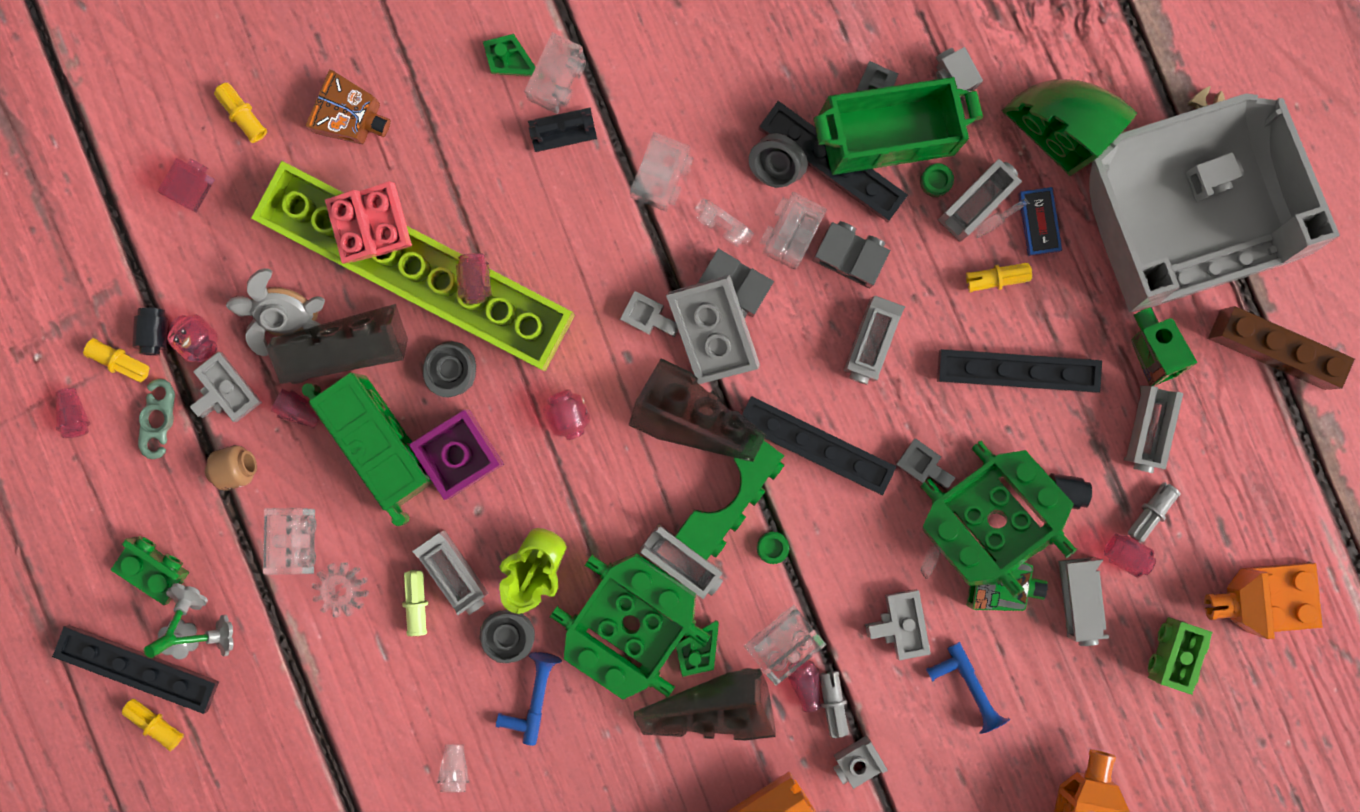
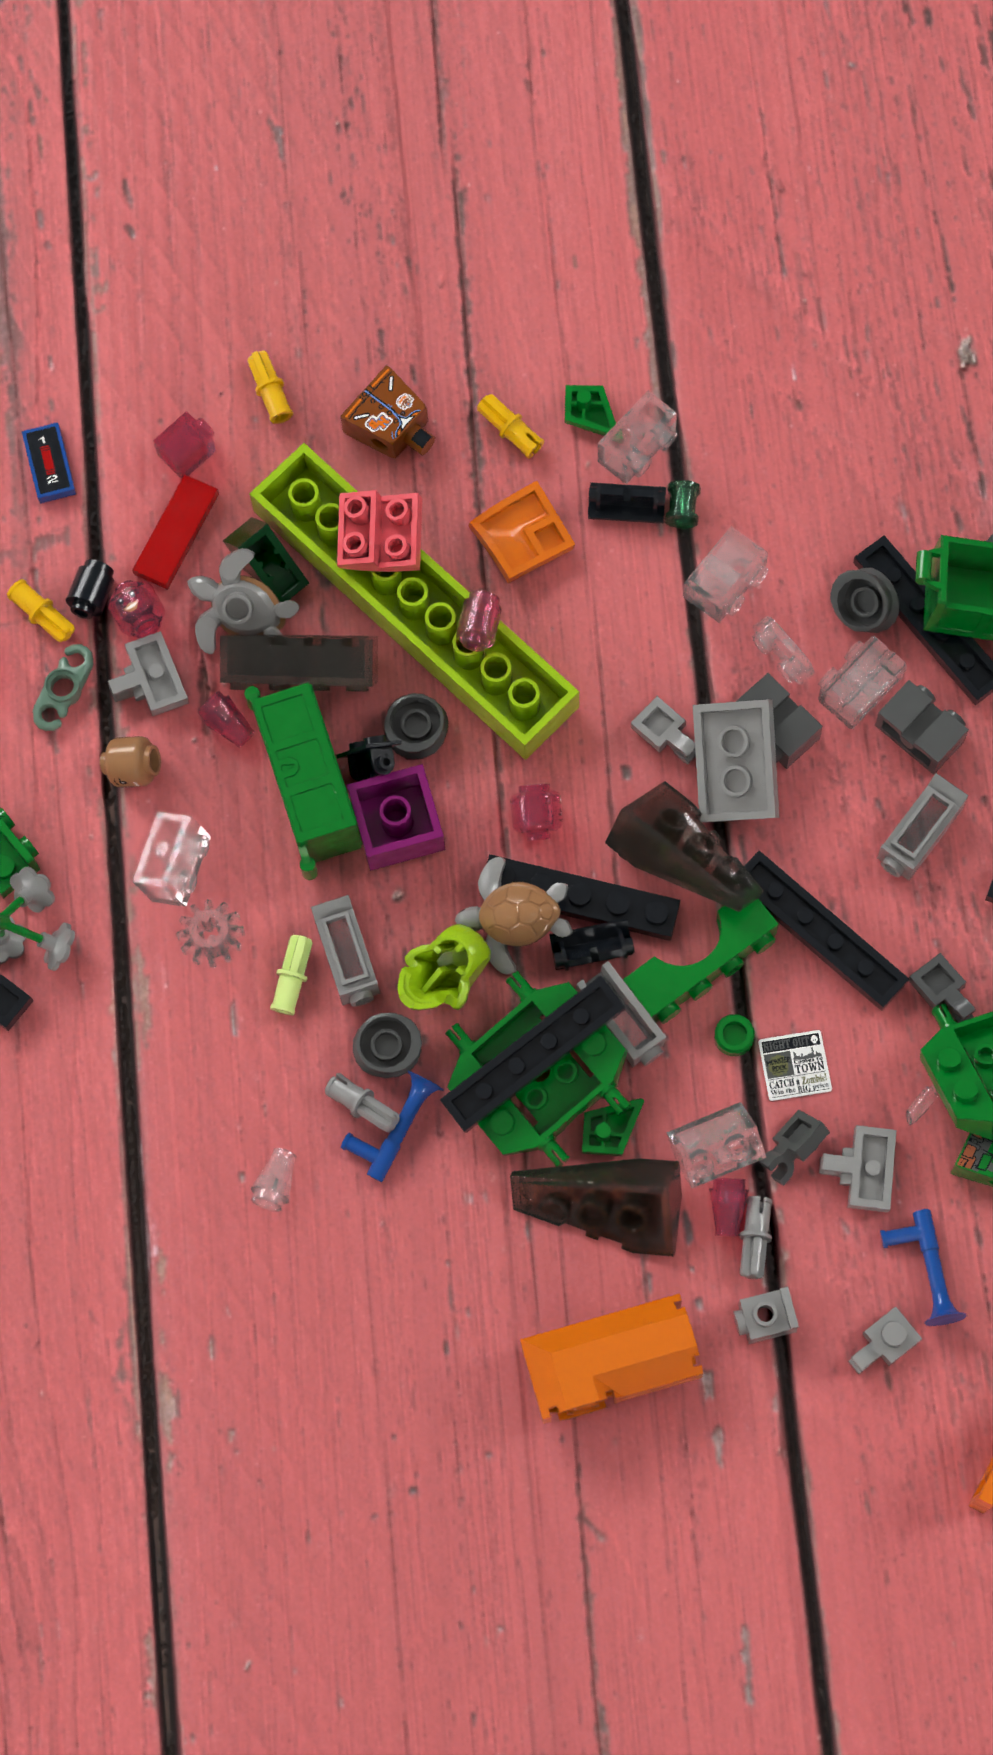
camera: 25 degrees right, 15 degrees down
(80, 230) = (48, 462): none -> tile
(204, 259) = (175, 531): none -> red tile
(286, 266) = (271, 560): none -> dark green arch
(421, 412) = (370, 757): none -> black hinge
(447, 90) = (510, 425): none -> yellow axle
(485, 181) = (522, 532): none -> orange plate
(502, 690) = (361, 1102): none -> light grey axle
(573, 506) = (513, 914): none -> medium nougat animal
(608, 119) = (682, 504): none -> clear green bush
(621, 472) = (599, 900): none -> black plate
(624, 623) = (533, 1054): none -> black plate
(631, 517) = (592, 944): none -> black hinge
(825, 556) = (795, 1065): none -> sticker
(845, 619) = (794, 1140): none -> dark grey plate
(955, 750) = (887, 1339): none -> light grey plate

